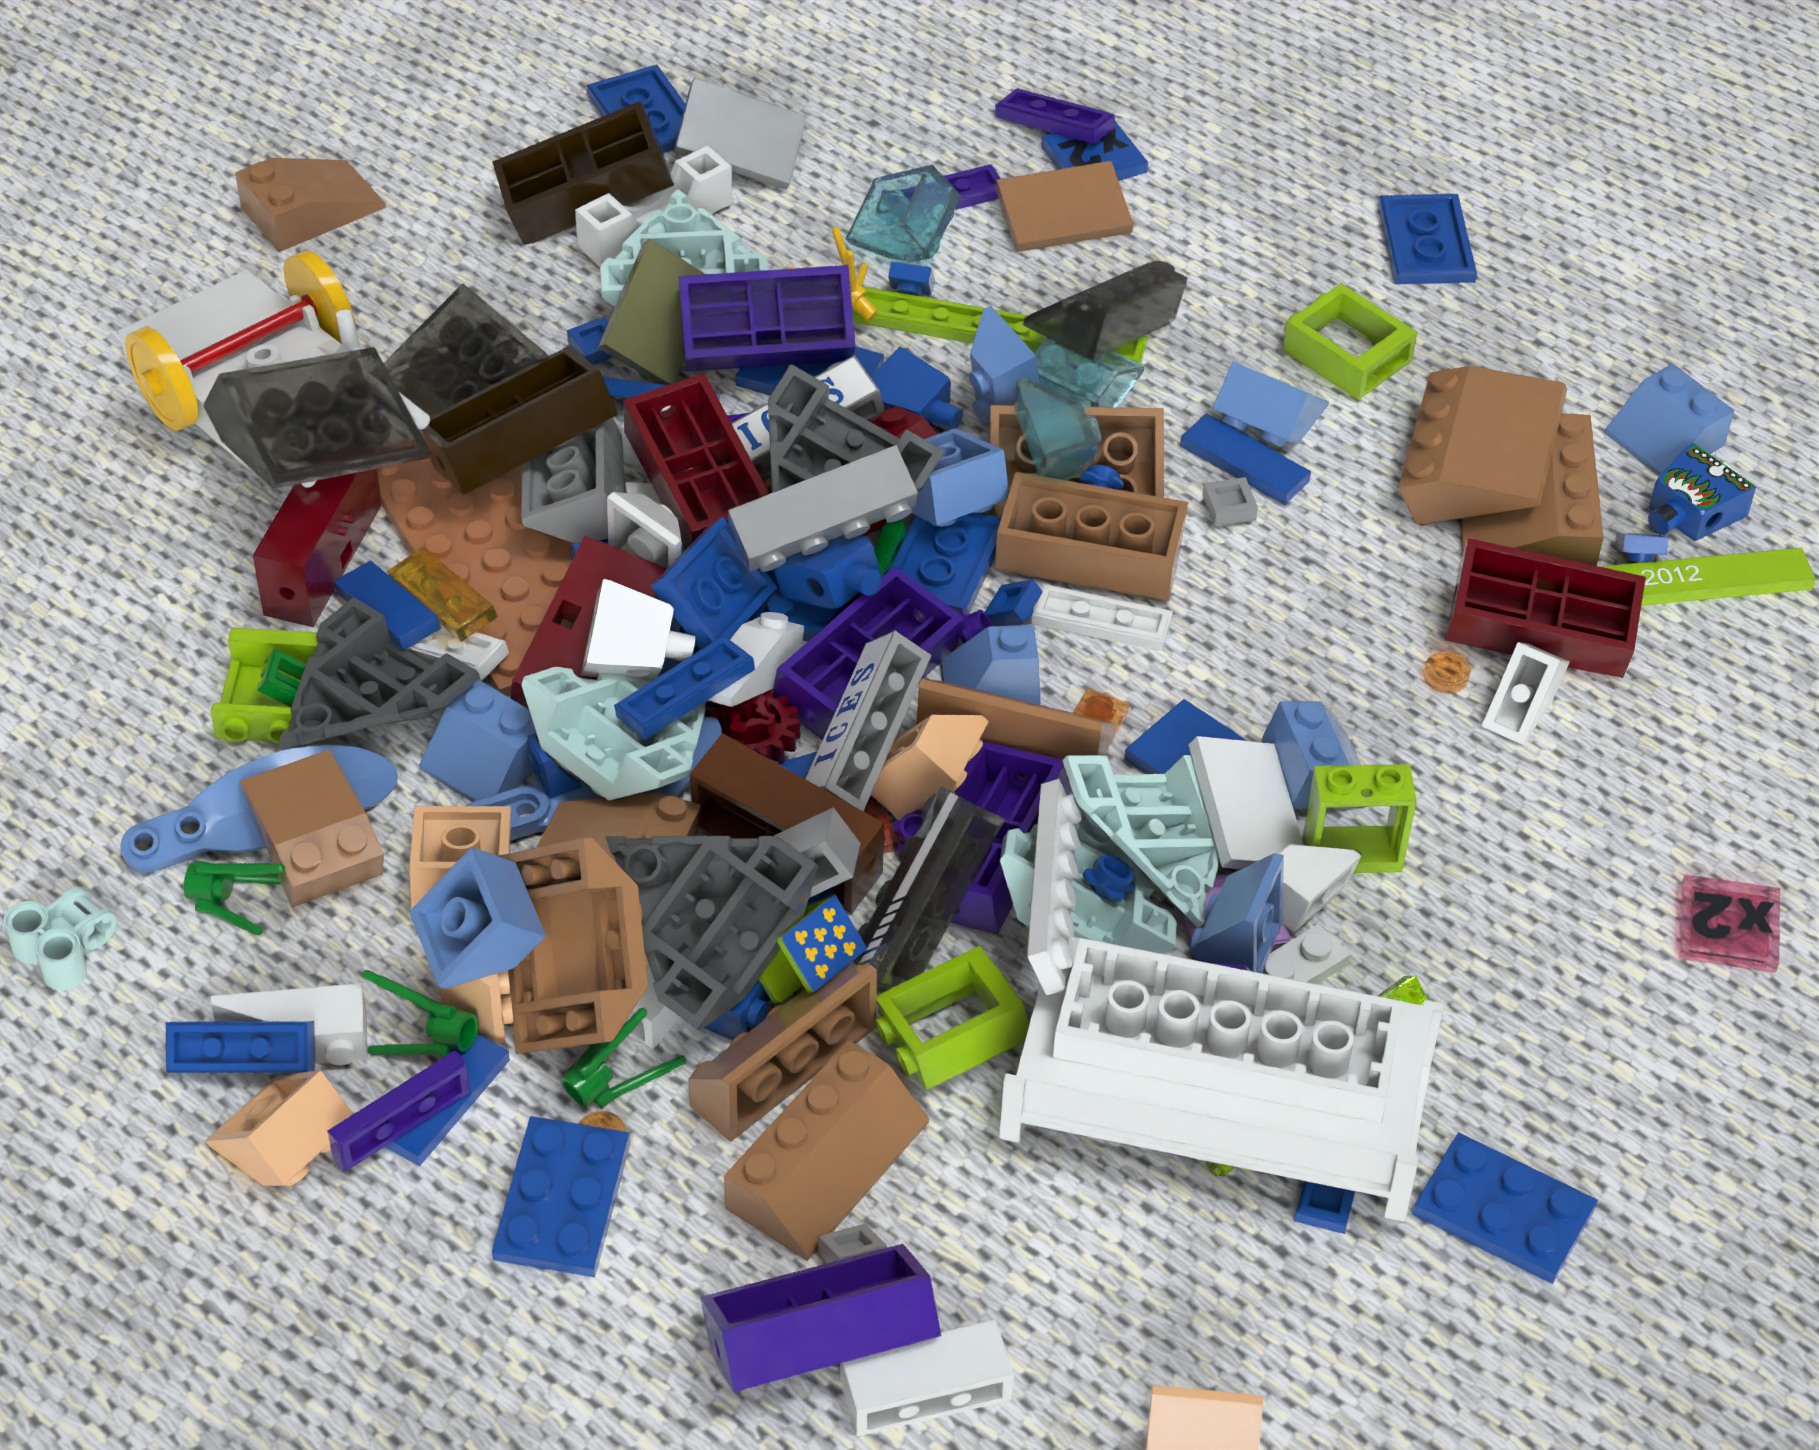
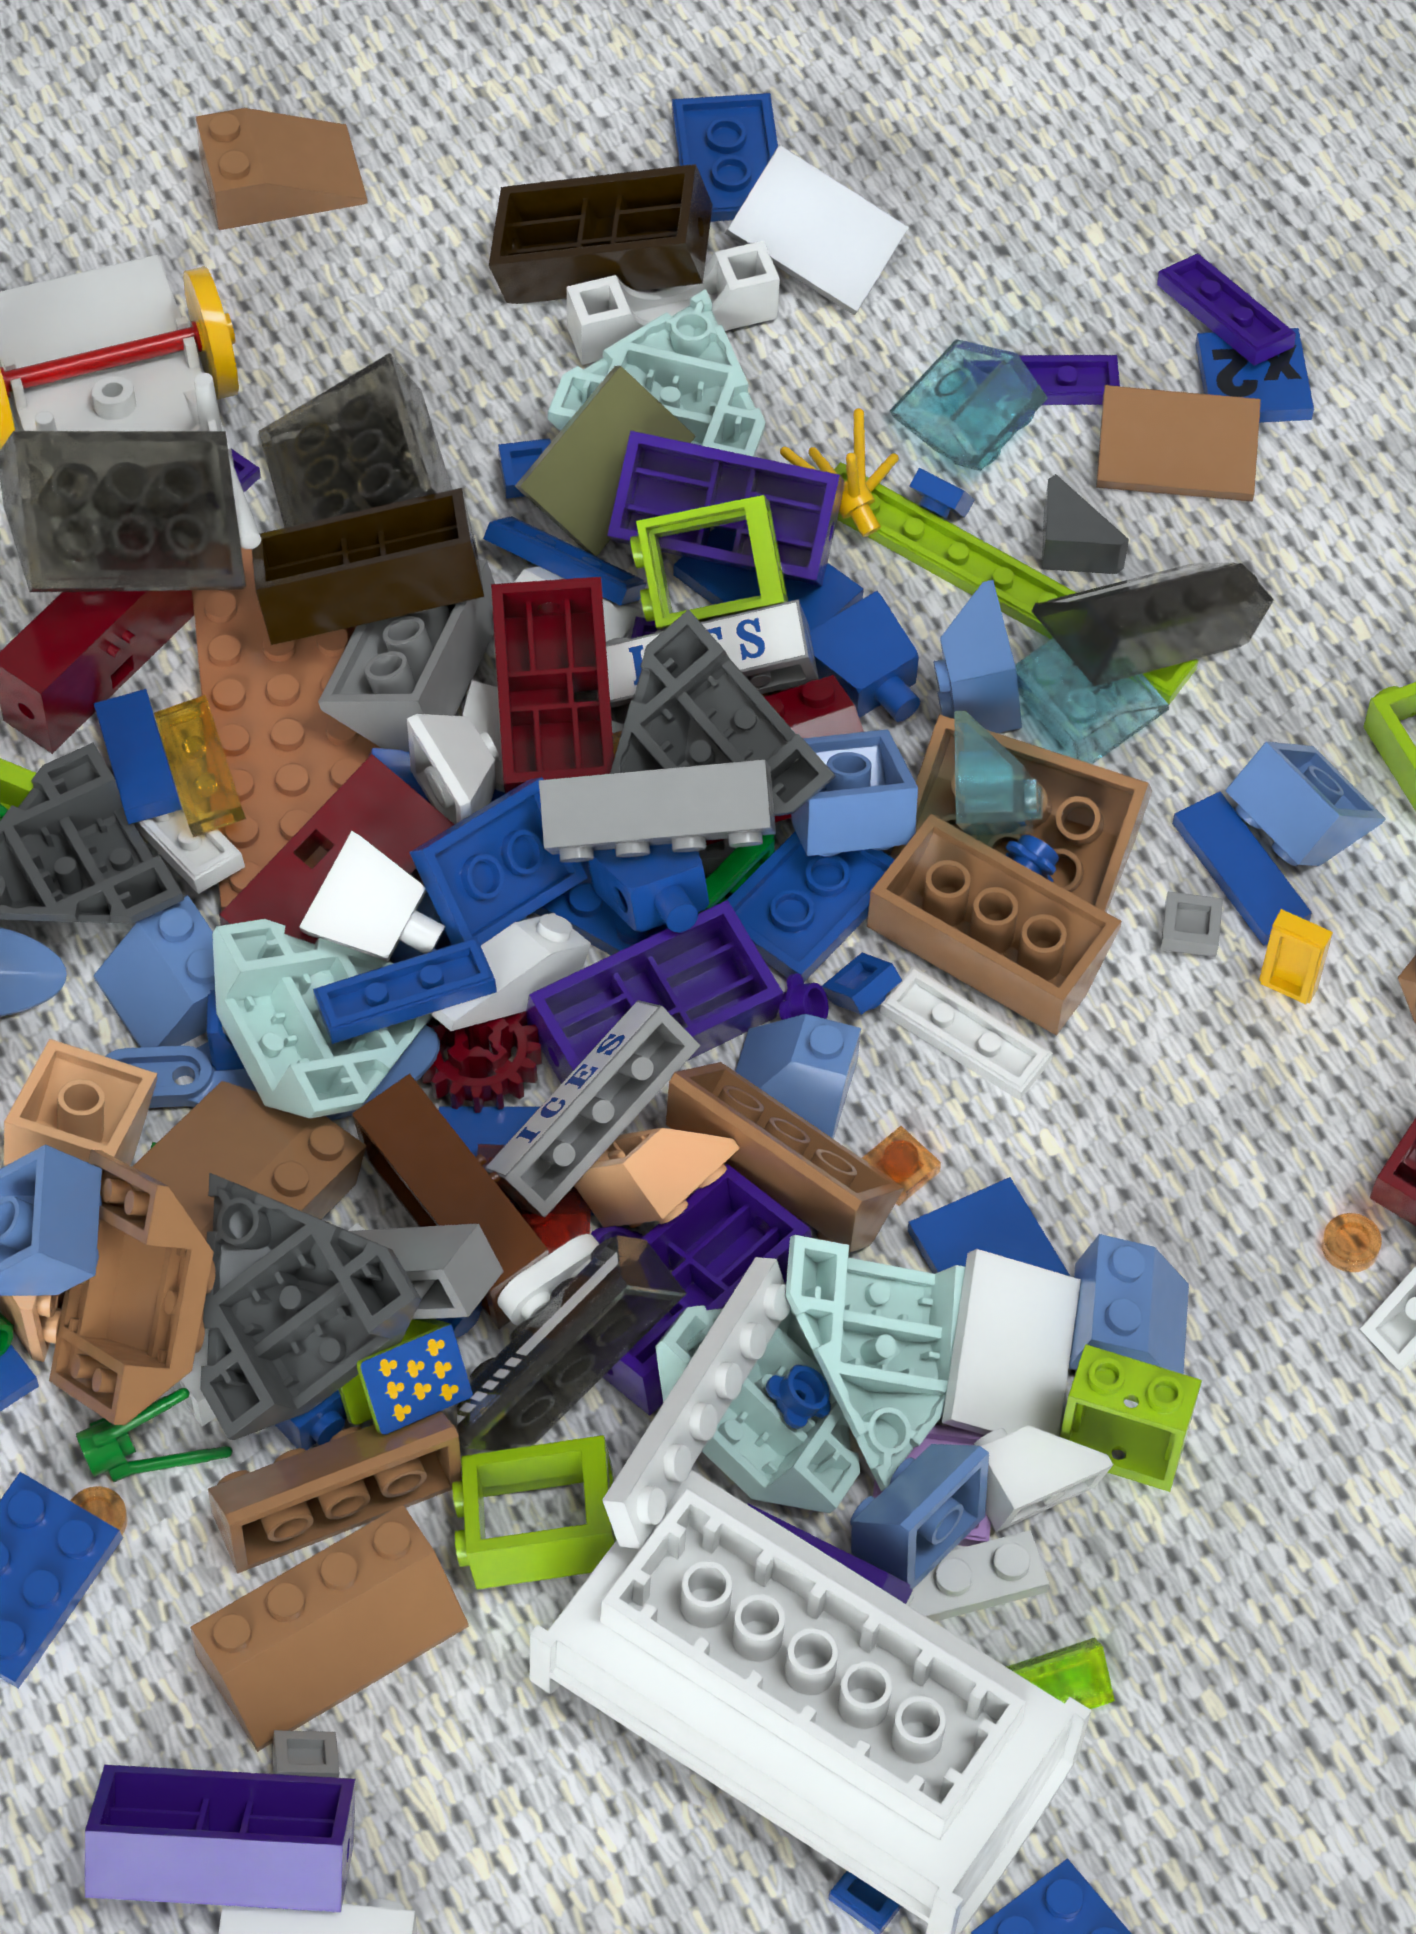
camera: 20 degrees right, 10 degrees up
(809, 323) = (765, 551): none -> lime window
(881, 858) = (531, 1289): none -> white plate
(1022, 279) = (1078, 535): none -> dark grey slope
(1319, 494) = (1295, 957): none -> yellow tile

